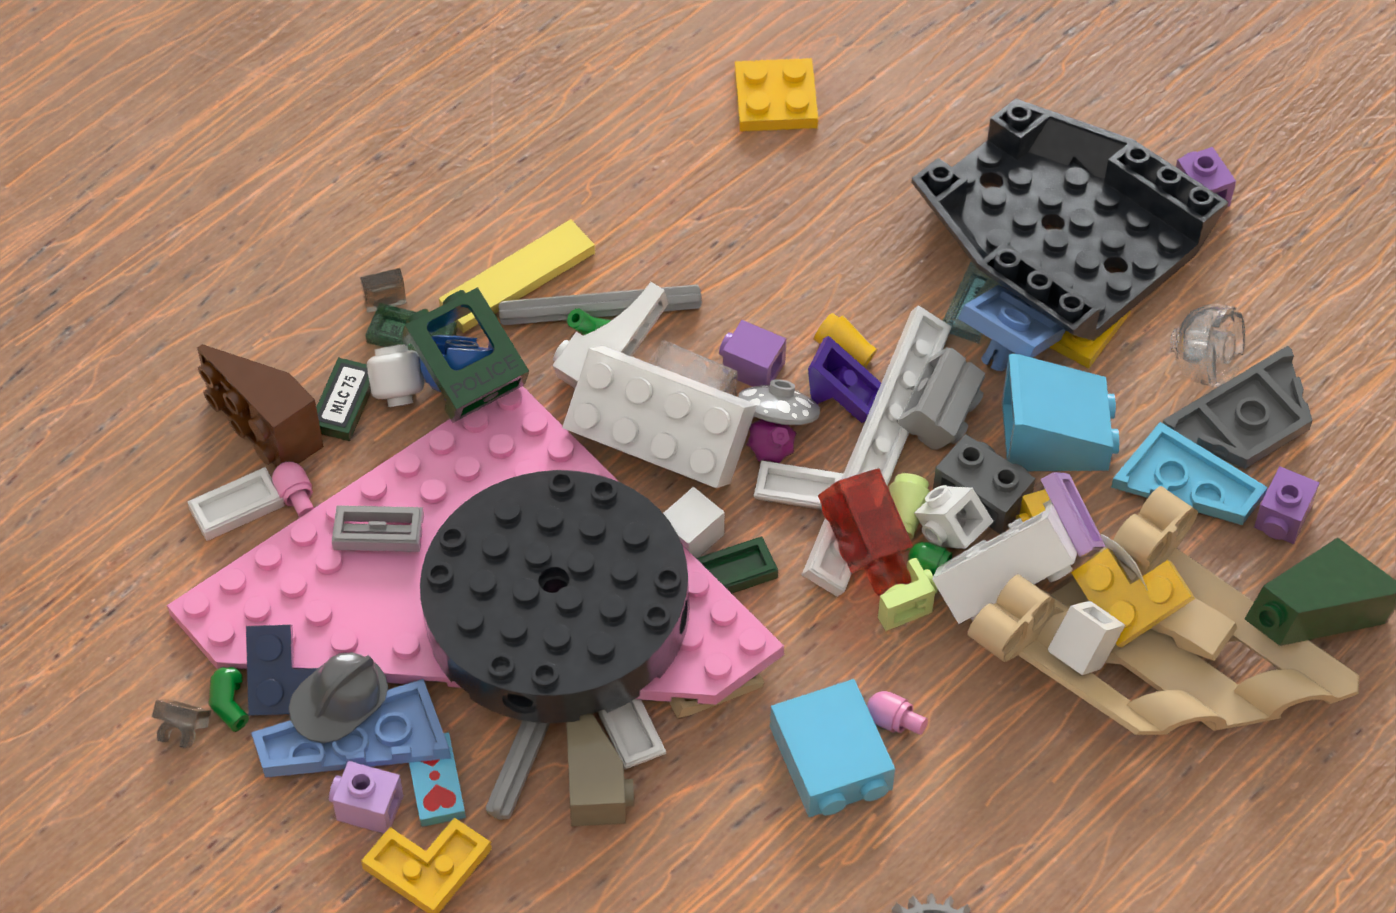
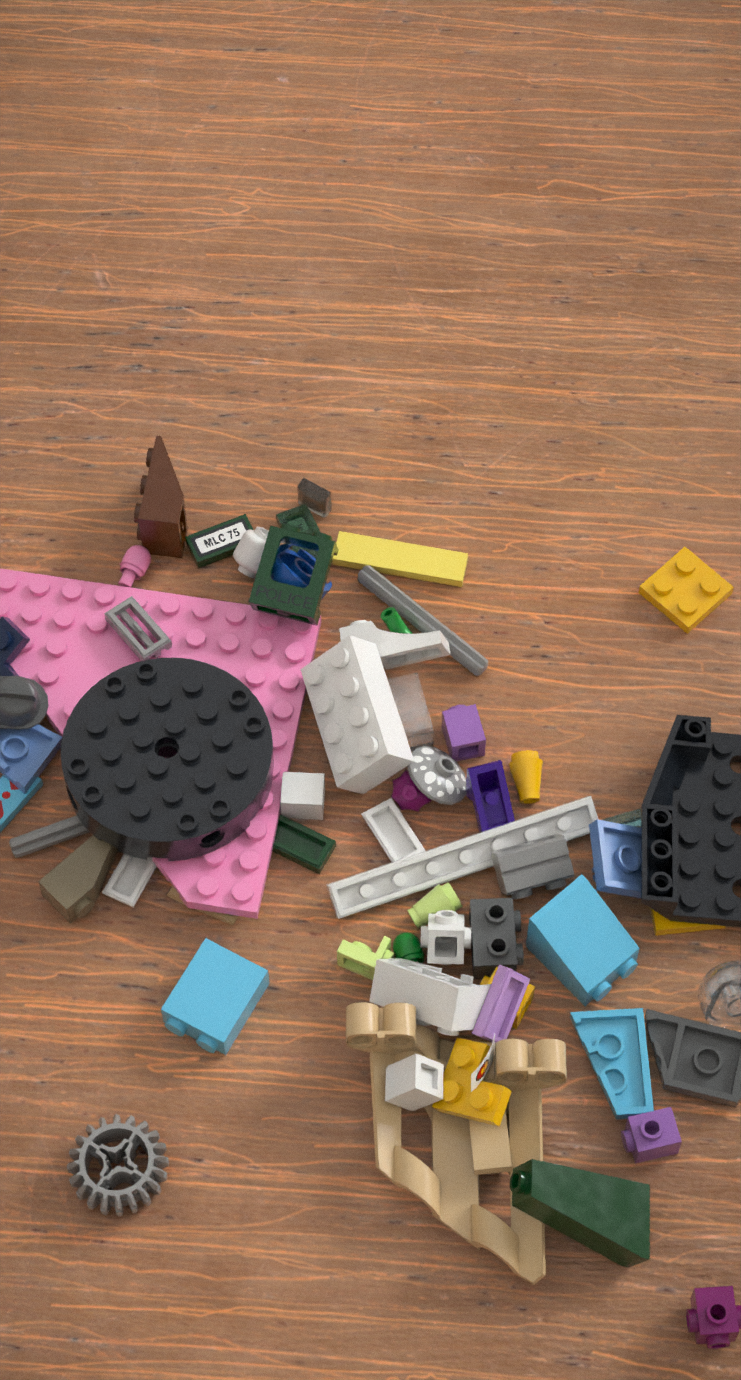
camera: 50 degrees right, 5 degrees up
(235, 504) = (96, 545): white tile -> none
(868, 528) = (387, 894): clear red brick -> none
(895, 713) = (276, 1014): bright pink cylinder -> none

